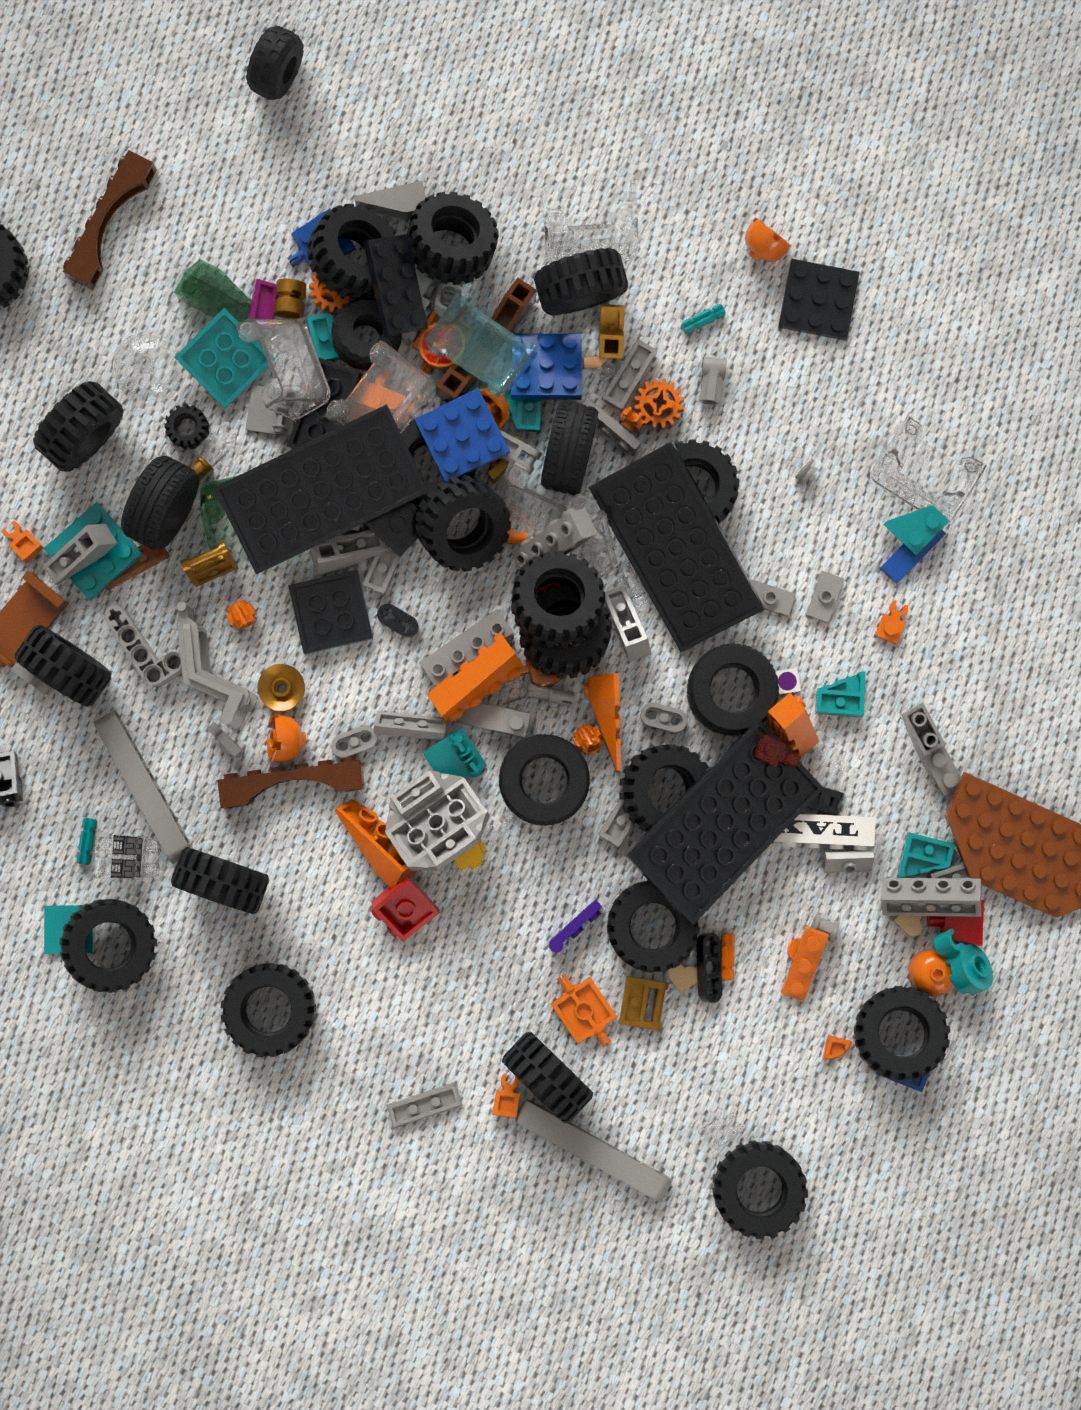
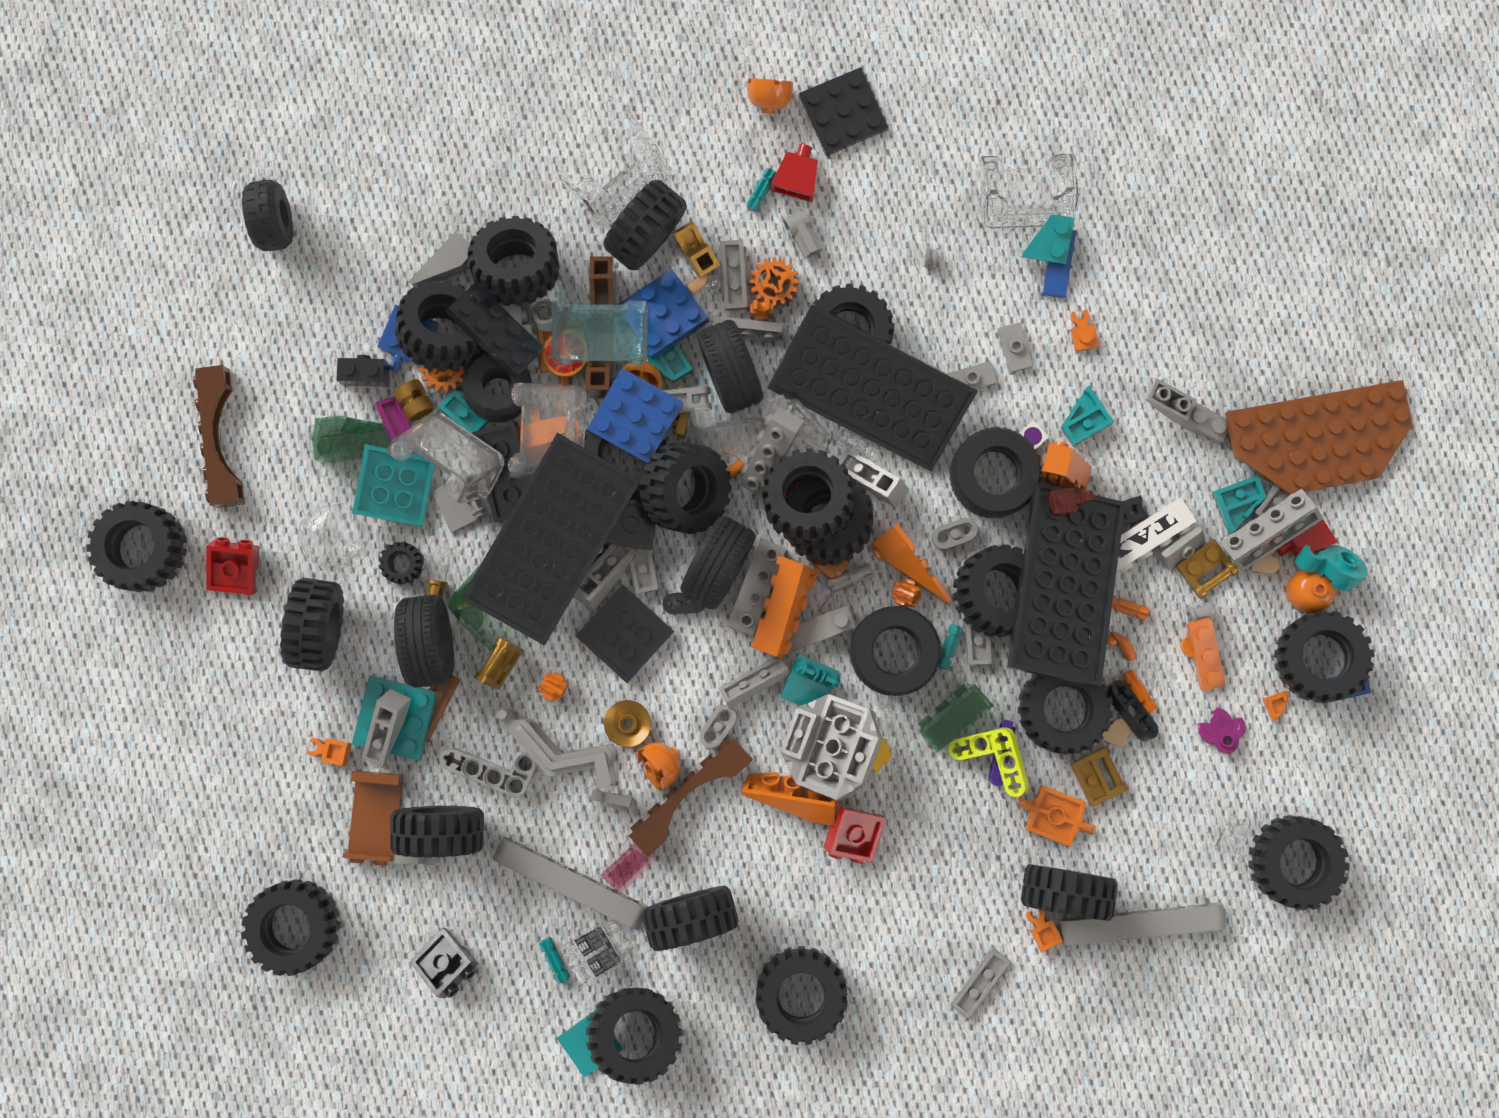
camera: 30 degrees left, 0 degrees up
(46, 334) = (231, 566): none -> red plate
(197, 804) = (625, 867): none -> clear pink slope
(264, 246) = (363, 371): none -> black brick
(446, 603) = (717, 562): none -> black tyre
(554, 868) = (953, 716): none -> clear green wedge
(572, 917) = (996, 746): none -> neon yellow beam
(593, 809) = (949, 646): none -> teal axle
(741, 326) = (796, 175): none -> red torso
(742, 907) = (1124, 643): none -> orange arm
(766, 879) = (1130, 608): none -> orange axle
(775, 1034) = (1222, 727): none -> magenta plate
(856, 886) = (1201, 563): none -> pearl gold plate

